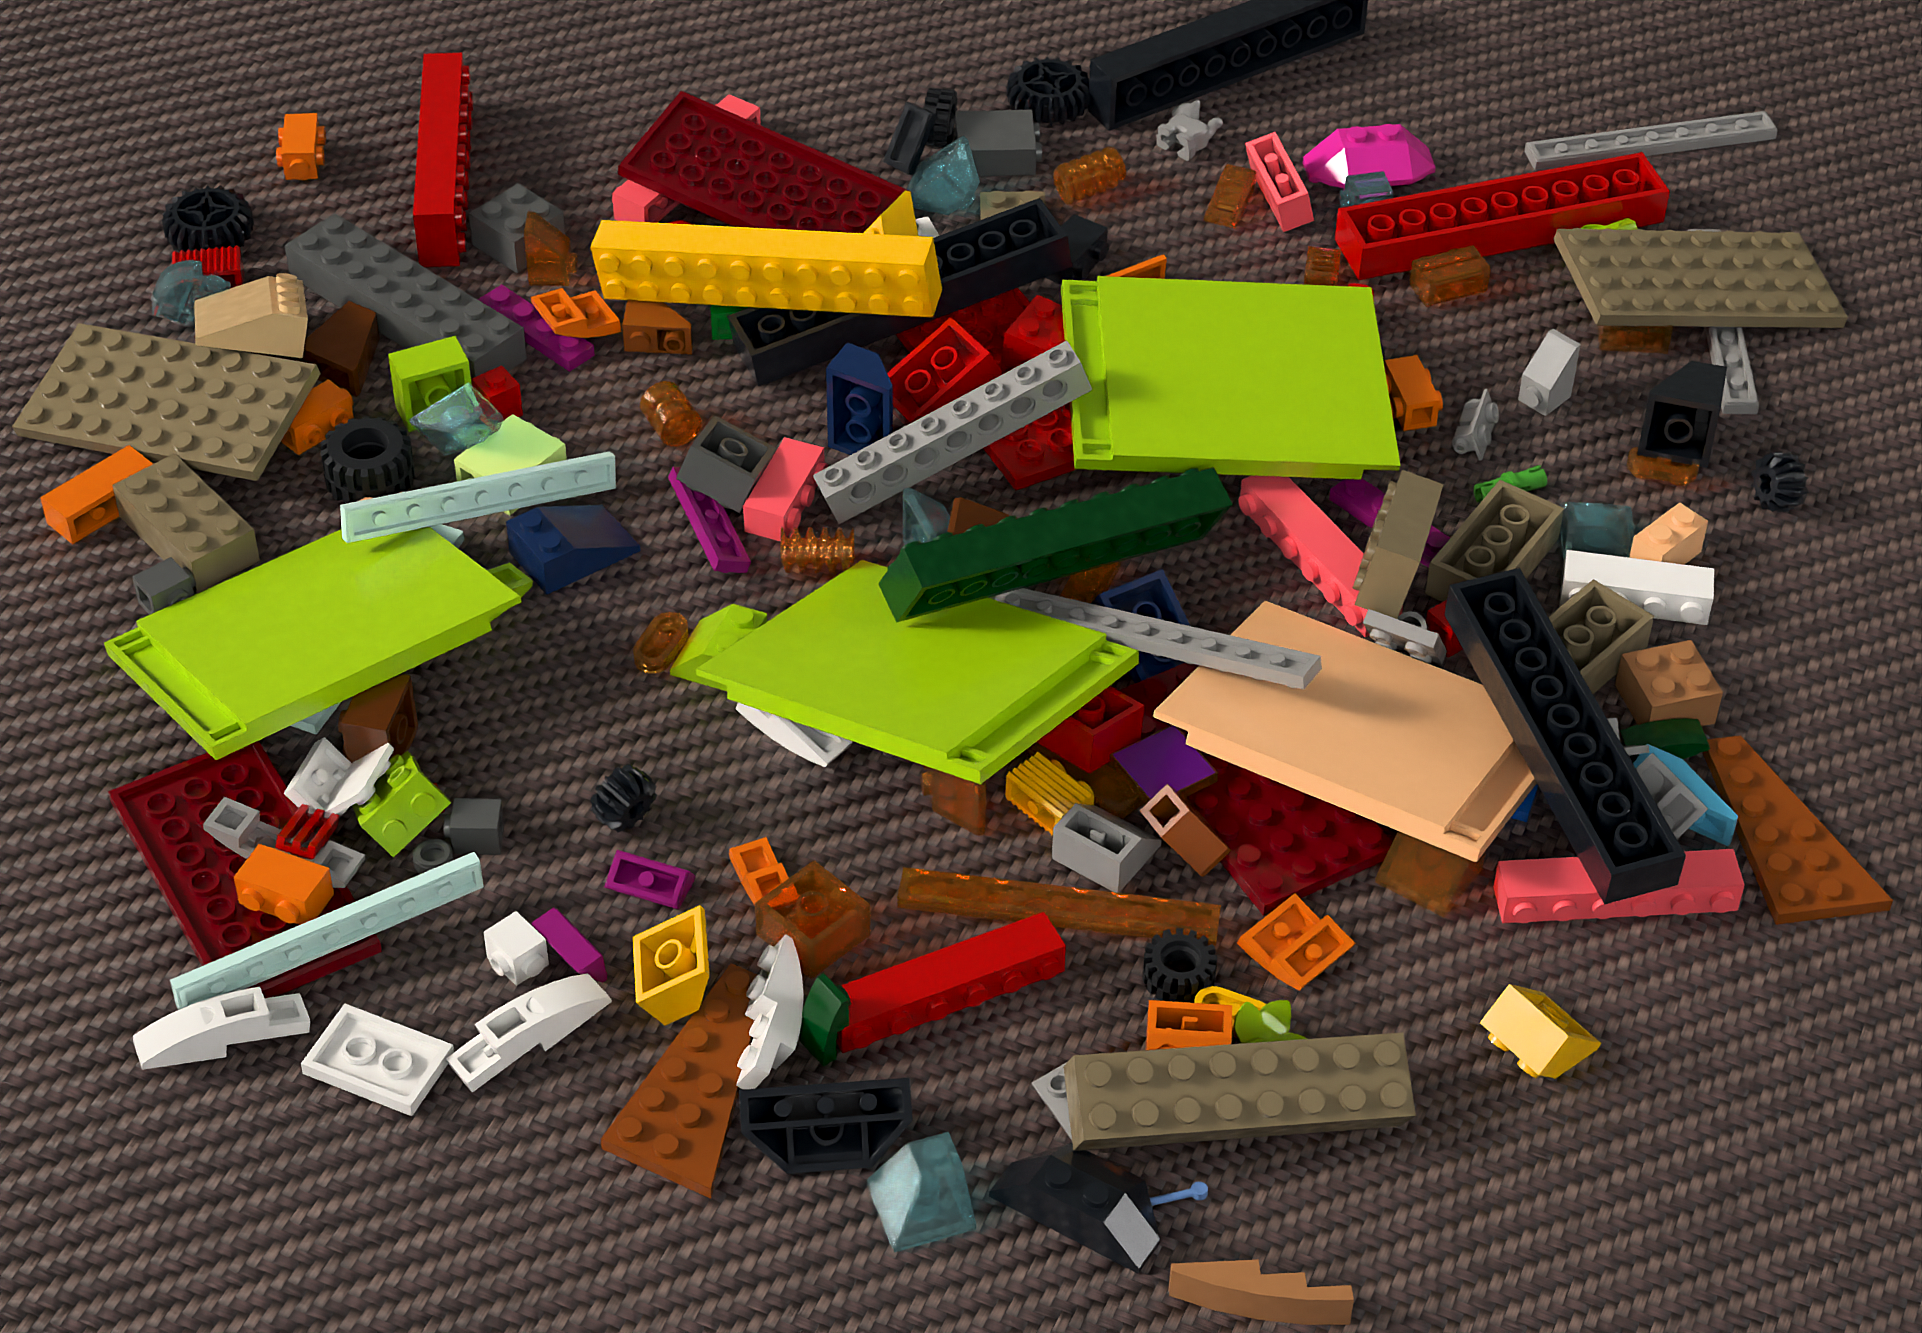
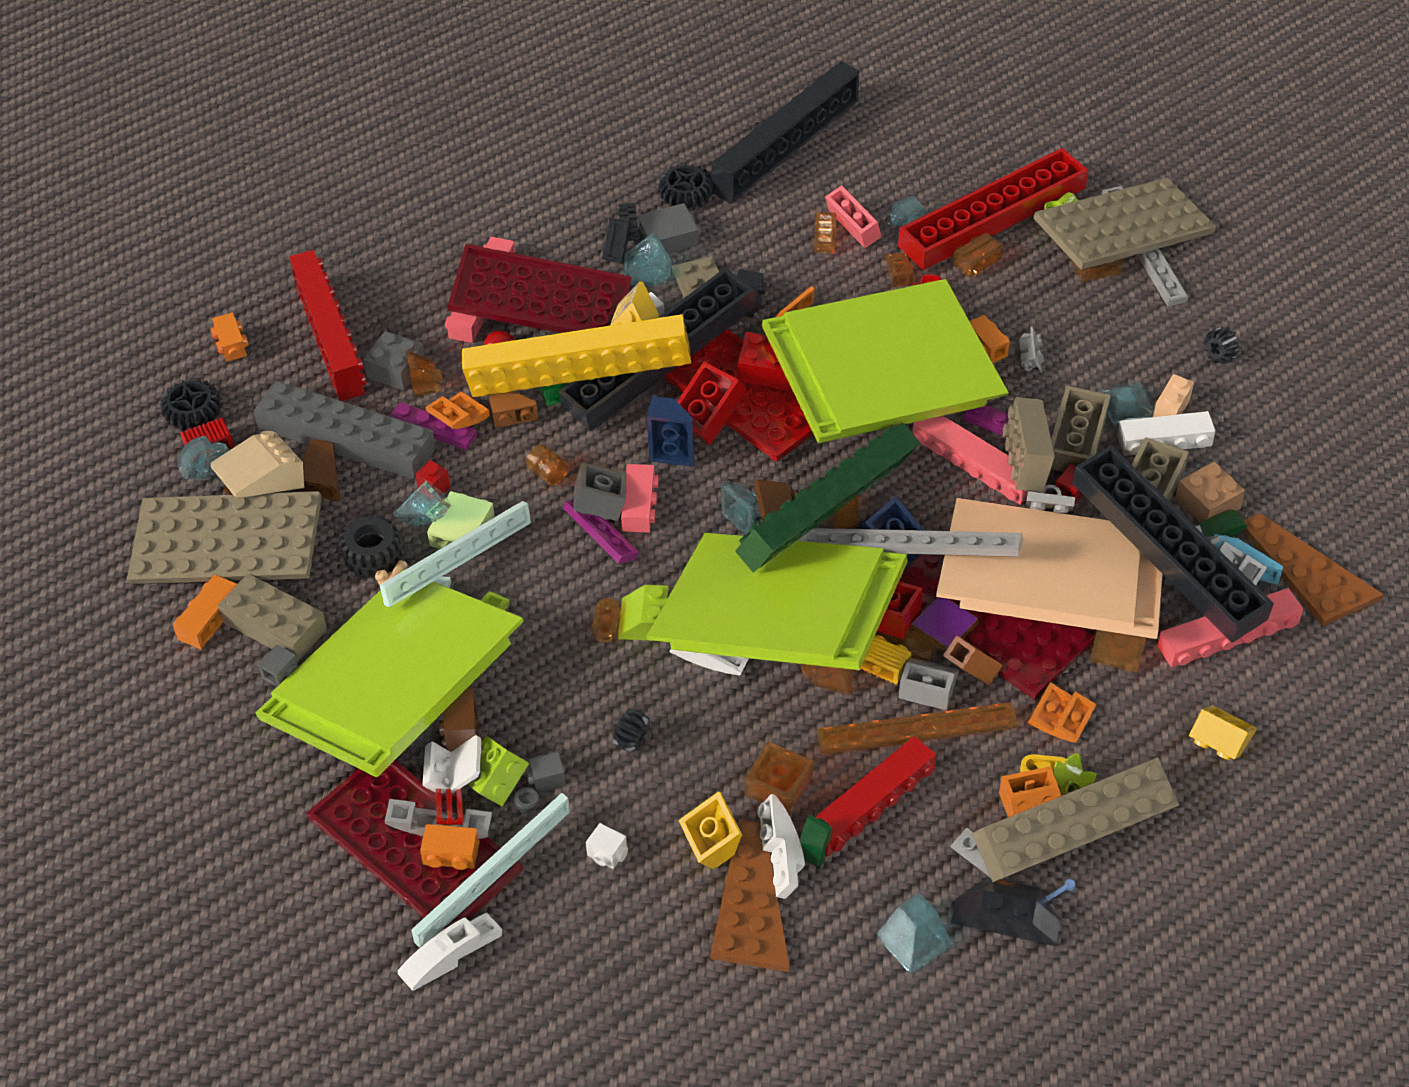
camera: 15 degrees left, 5 degrees up
(320, 413) = (330, 520): orange brick -> none
(377, 1059) = (553, 941): white plate -> none
(427, 375) = (389, 482): lime brick -> none
(531, 1019) = (635, 894): white slope -> none
(567, 543) = (519, 568): dark blue slope -> none
(571, 944) = (640, 834): magenta slope -> none
(649, 880) = (665, 778): magenta slope -> none
(757, 868) = (732, 757): orange slope -> none
(817, 550) = (676, 534): clear orange piece -> none
(826, 1123) = (843, 905): black wedge -> none
(953, 432) = (734, 437): light grey brick -> none
(1089, 174) = (735, 238): clear orange piece -> none
(1179, 948) = (1007, 736): black tyre -> none
(1187, 130) = (781, 194): light grey animal -> none
(1243, 1291) = (1123, 940): medium nougat slope -> none
(1368, 151) = (895, 185): dark pink wedge -> none
(1527, 480) = (1072, 380): bright green pin -> none
(1550, 373) = (1064, 307): light grey slope -> none
(1651, 140) = (1056, 135): light grey tile -> none
(1661, 469) = (1149, 350): clear orange plate -> none
(1684, 414) = (1156, 316): black slope -> none

